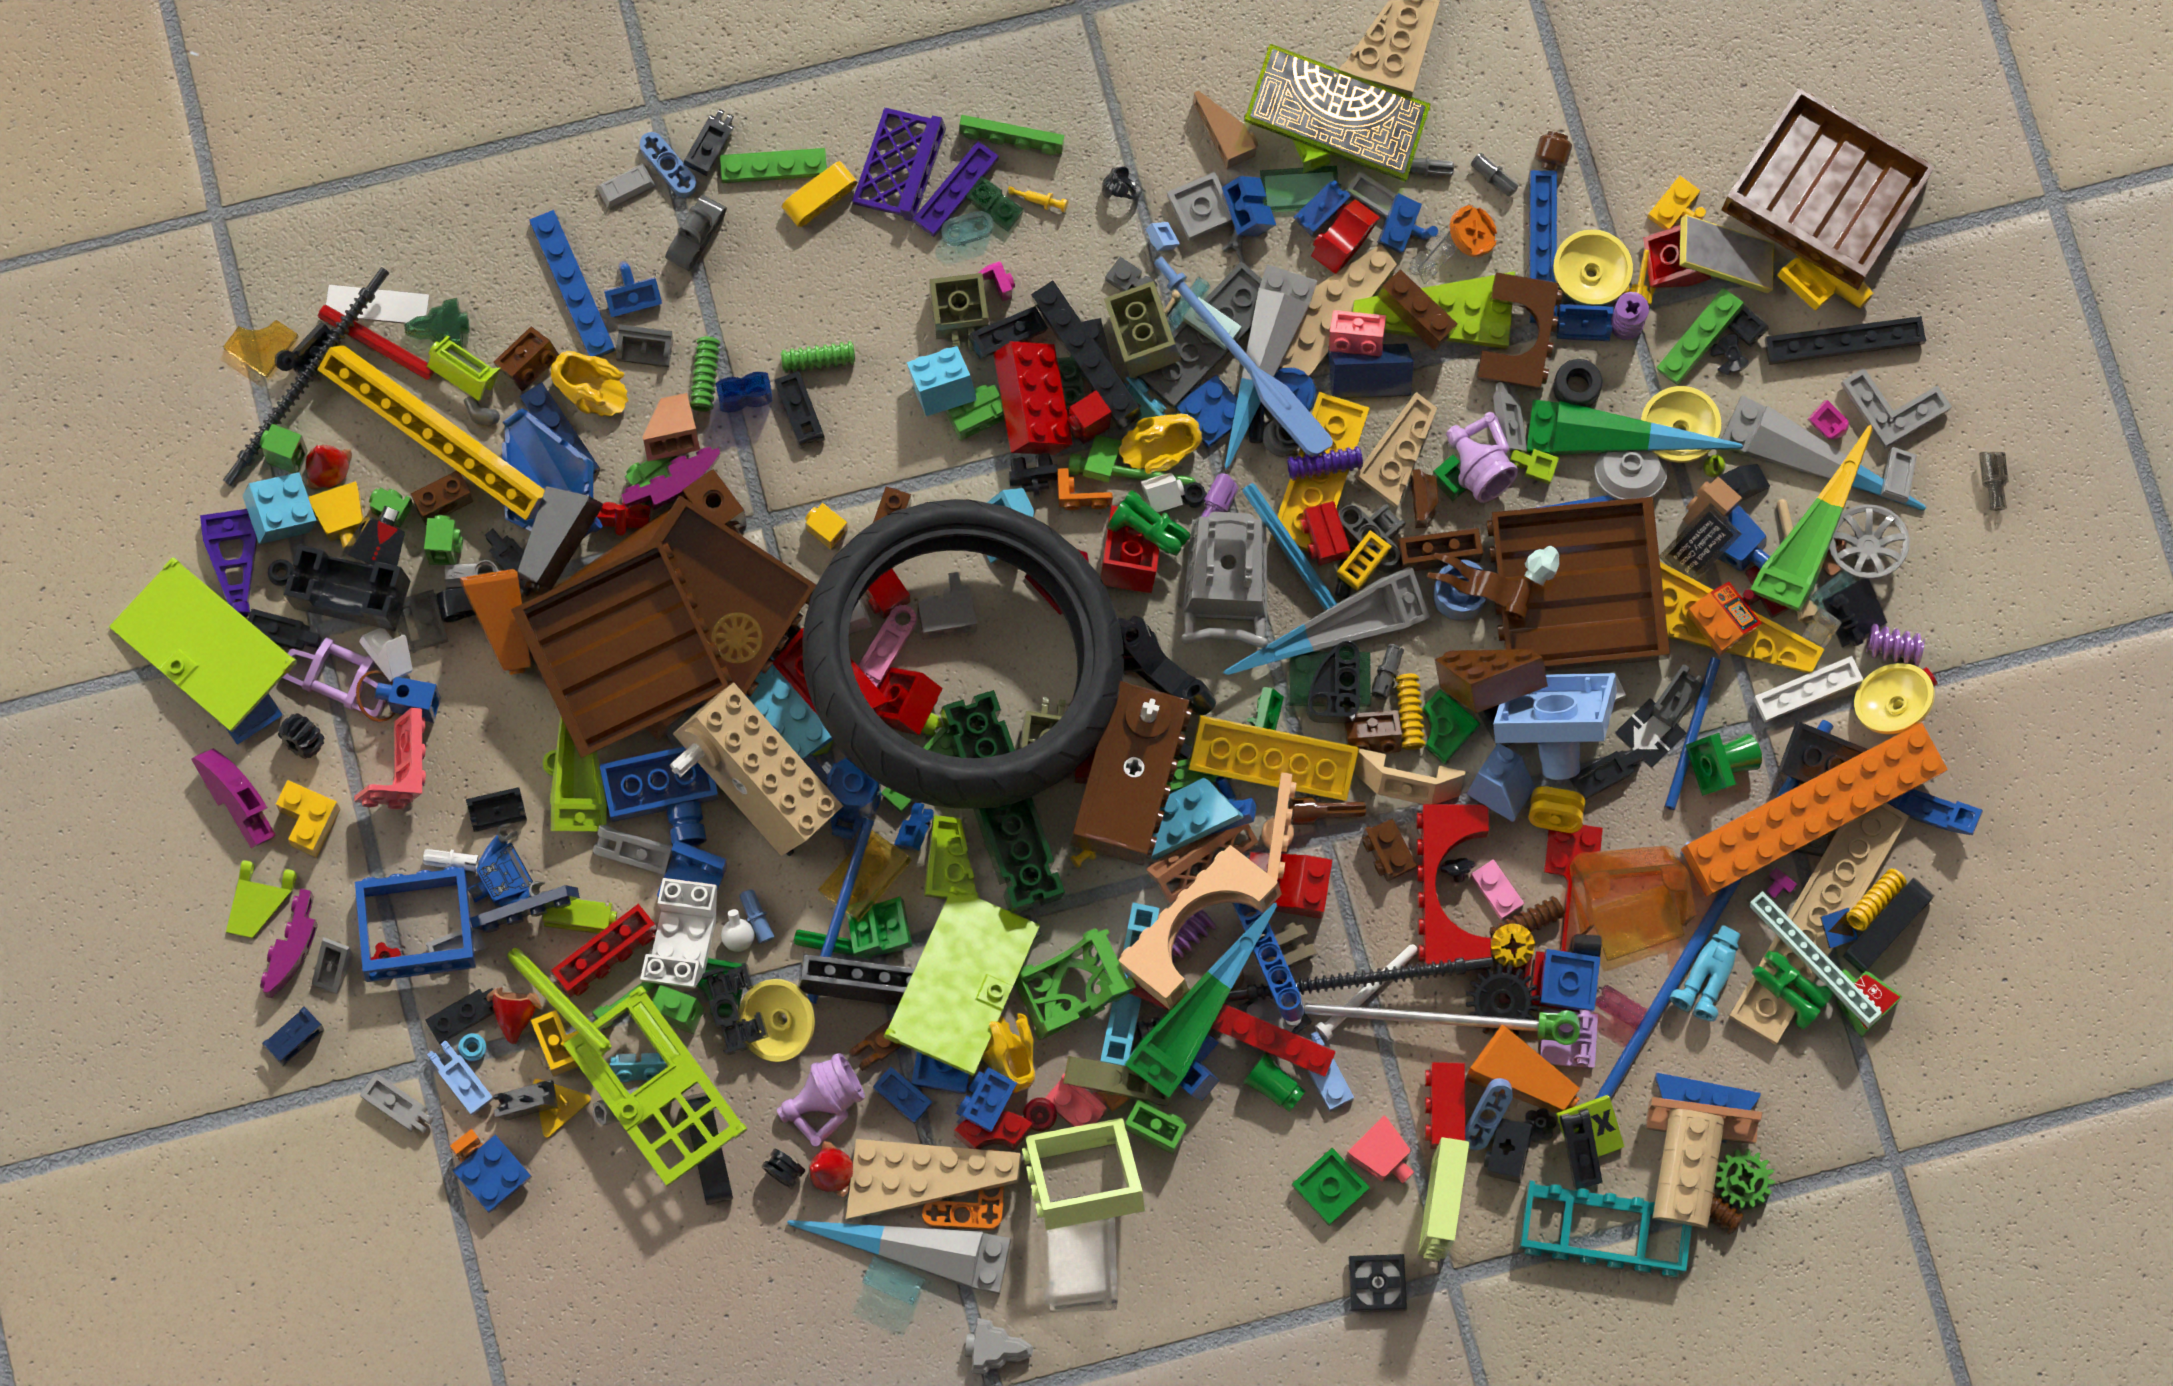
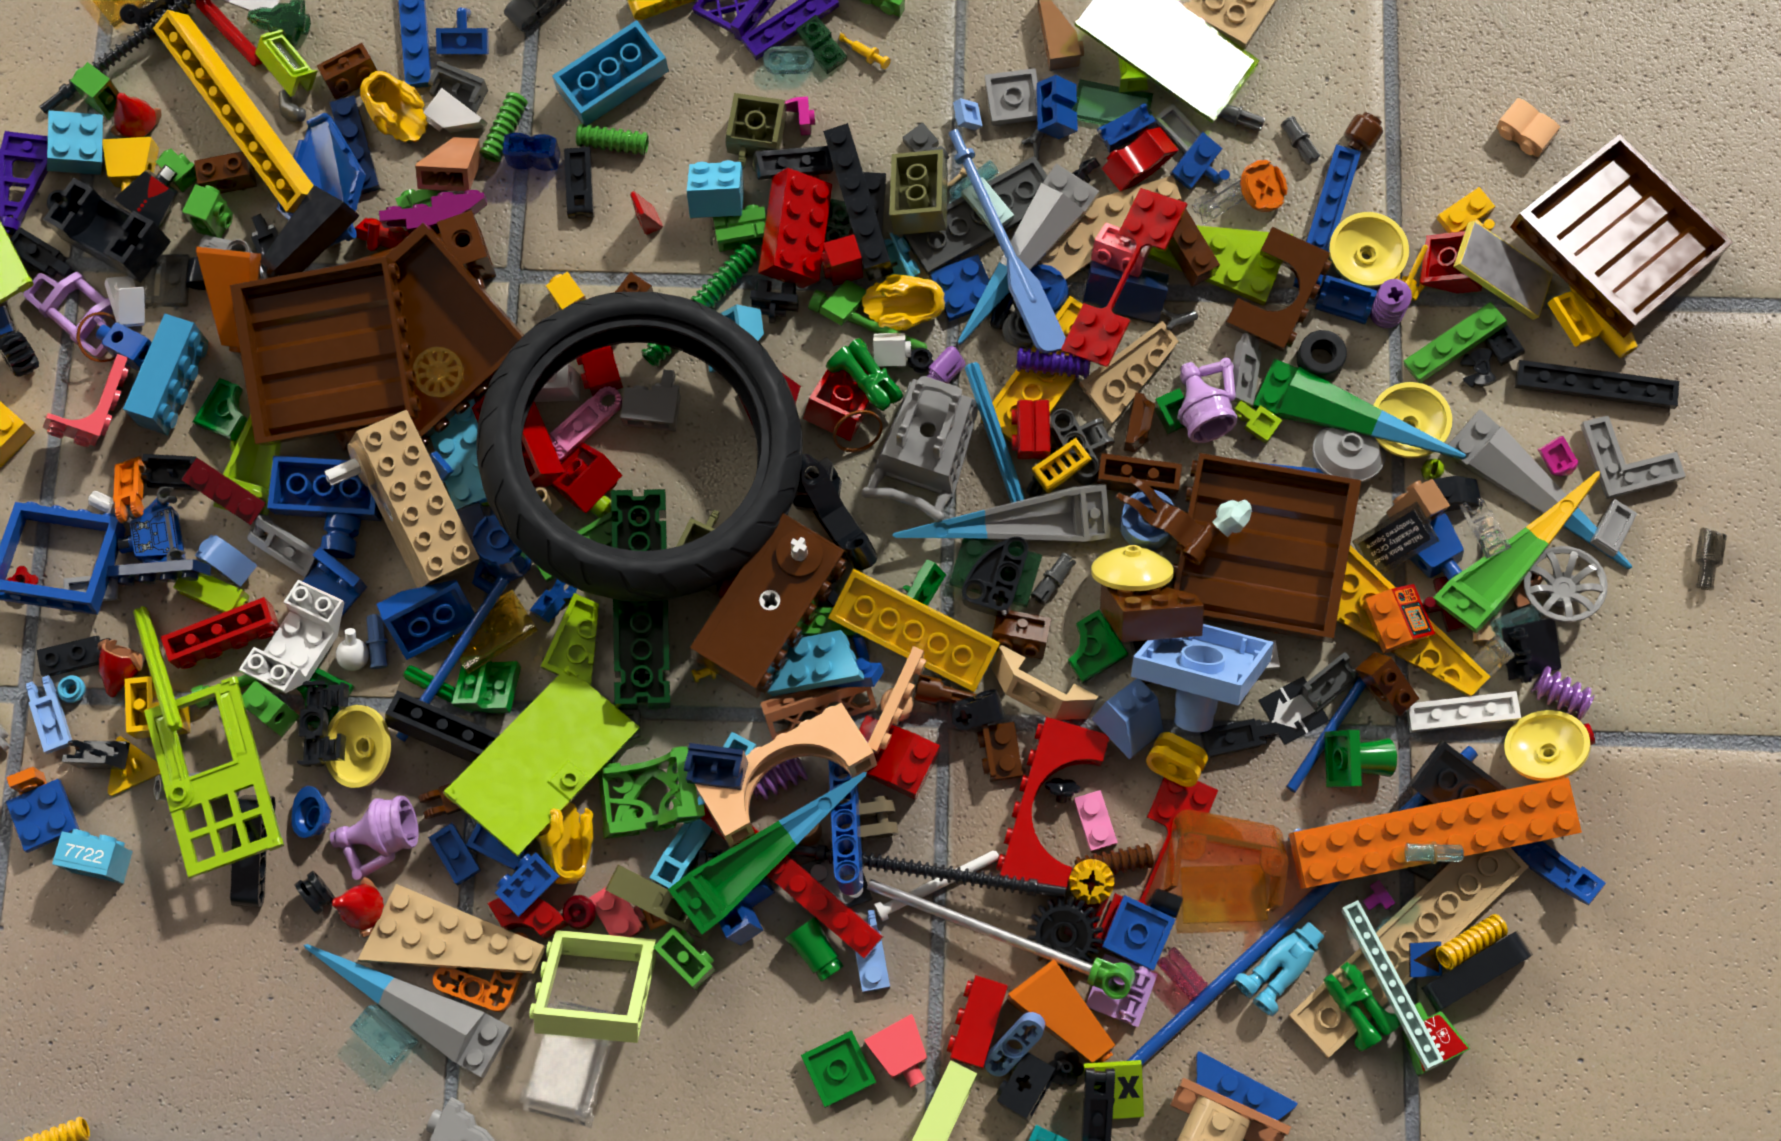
camera: 25 degrees right, 0 degrees up
(459, 715) = (166, 374): none -> dark azure brick
(461, 835) = (128, 488): none -> orange hinge
(523, 737) = (221, 411): none -> green tile
(558, 1196) = (92, 856): none -> medium azure brick
(561, 812) = (223, 491): none -> dark red plate
(591, 880) = (225, 559): none -> medium blue brick
(628, 1069) = (206, 751): medium azure hinge -> none
(650, 375) = (451, 114): none -> white slope
(750, 1095) = (310, 813): none -> blue piece
(796, 291) = (610, 73): none -> dark azure brick
(801, 877) = (426, 616): none -> blue slope
(877, 425) = (646, 214): none -> red slope
(968, 483) = (711, 293): none -> green piece
(1074, 501) = (804, 335): orange bracket -> none
(1117, 184) = (941, 53): black piece -> none
(1134, 937) = (715, 766): none -> dark blue hinge
(1146, 570) = (852, 414): none -> dark orange piece
(1294, 259) = (1085, 168): none -> black piece
(1359, 814) = (980, 710): none -> black piece
(1361, 421) = (1098, 330): none -> red hinge
(1410, 711) = (1063, 623): yellow piece -> none
(1430, 385) = (1179, 319): none -> dark grey bar
(1461, 641) = (1132, 569): none -> light yellow dish
(1709, 103) = (1527, 127): none -> light nougat brick
(1731, 682) = (1387, 683): none -> reddish brown brick
(1780, 510) = (1485, 529): none -> clear hinge
(1819, 826) = (1434, 852): none -> clear light blue axle

